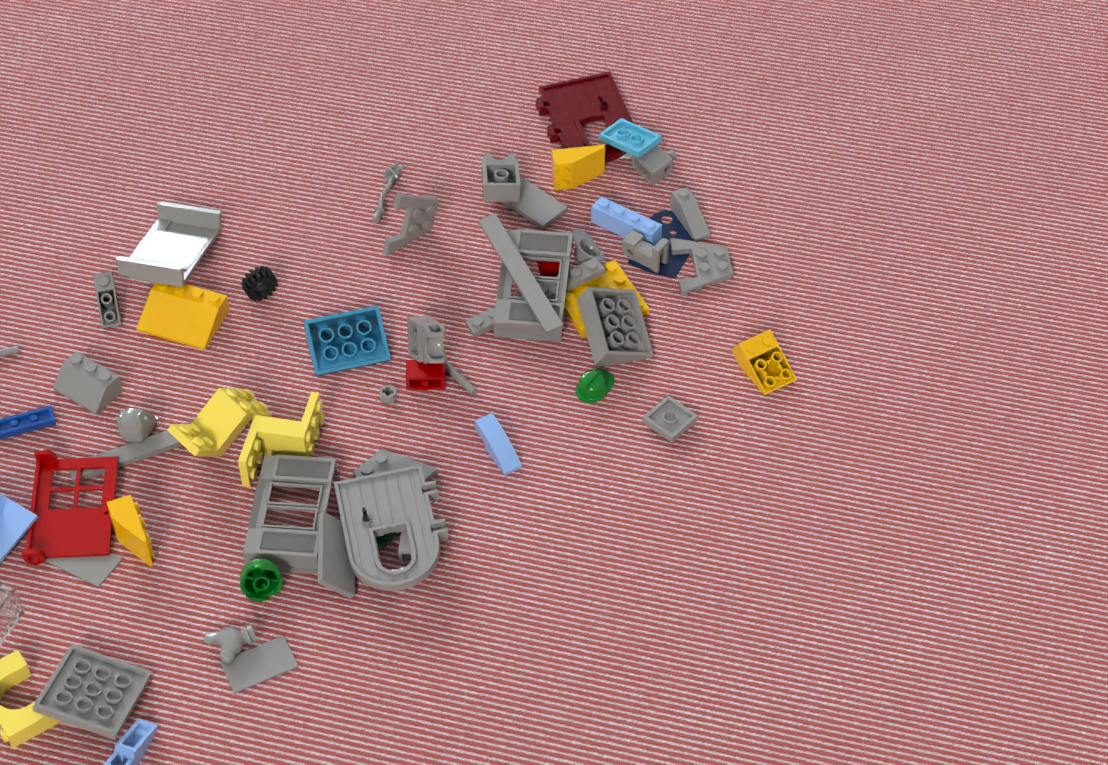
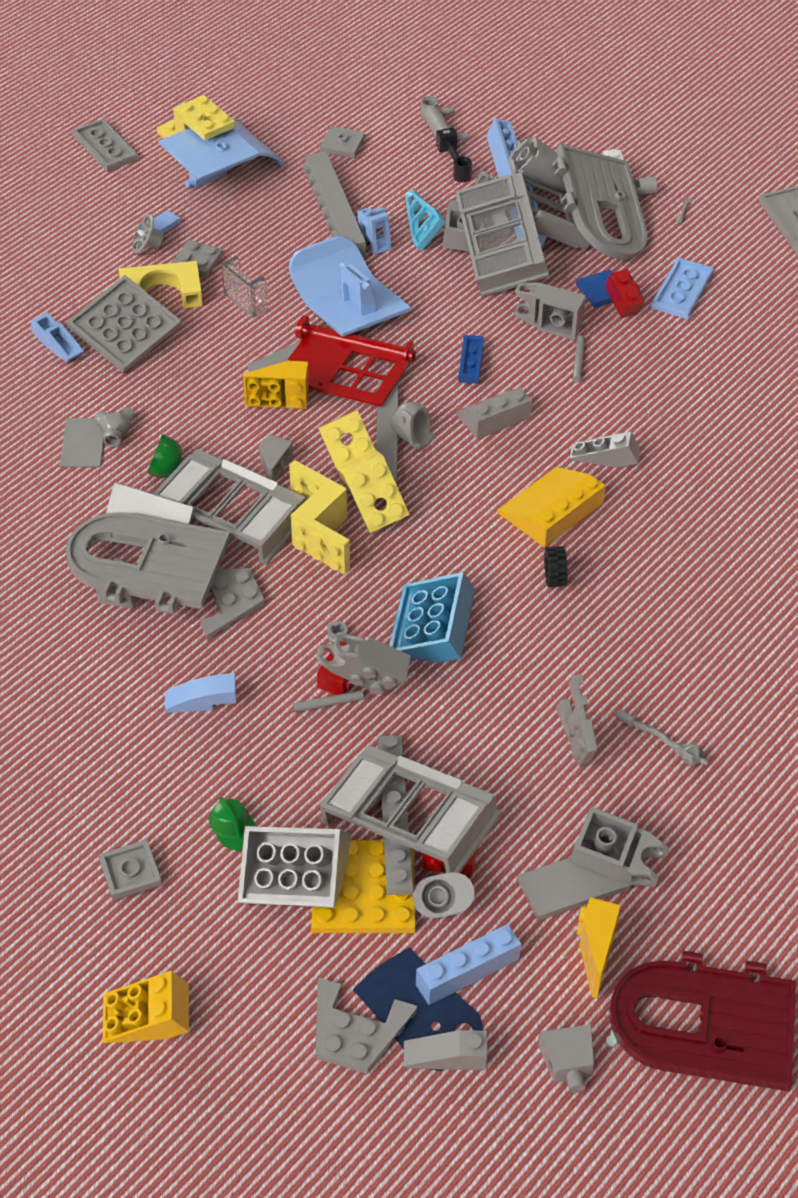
camera: 115 degrees right, 0 degrees up
(172, 245) = (645, 507): light grey piece -> none
(218, 506) = (275, 455): none -> light grey slope
(520, 274) = (415, 783): light grey tile -> none
(630, 138) = (619, 1030): medium azure plate -> none
(645, 252) = (403, 964): light grey piece -> none

